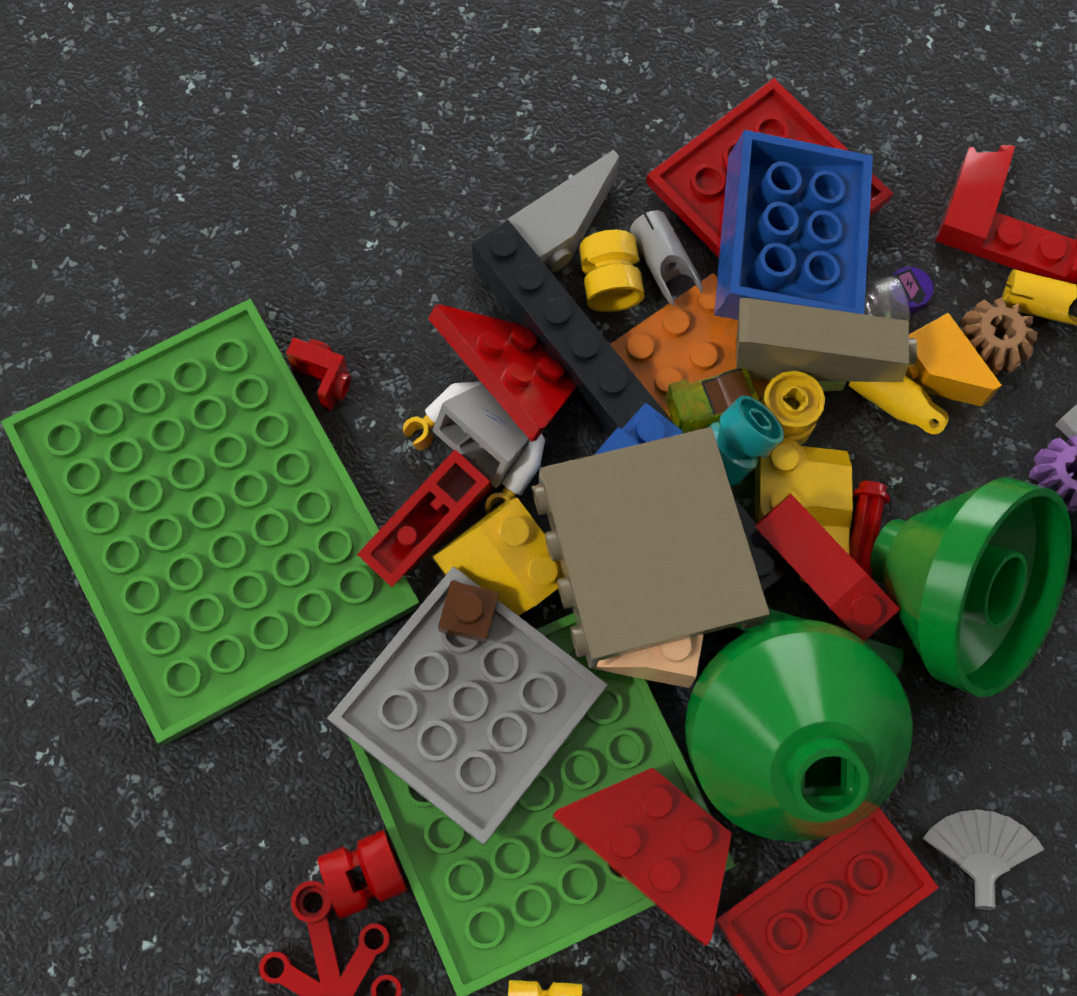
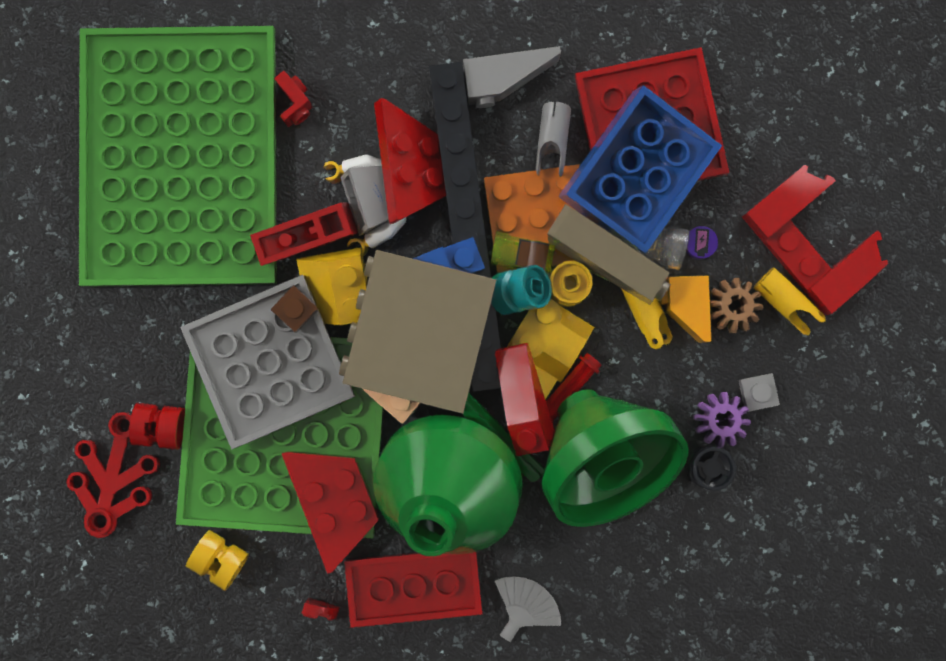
camera: 30 degrees right, 15 degrees up
(611, 277) = (513, 126): yellow wheel -> none

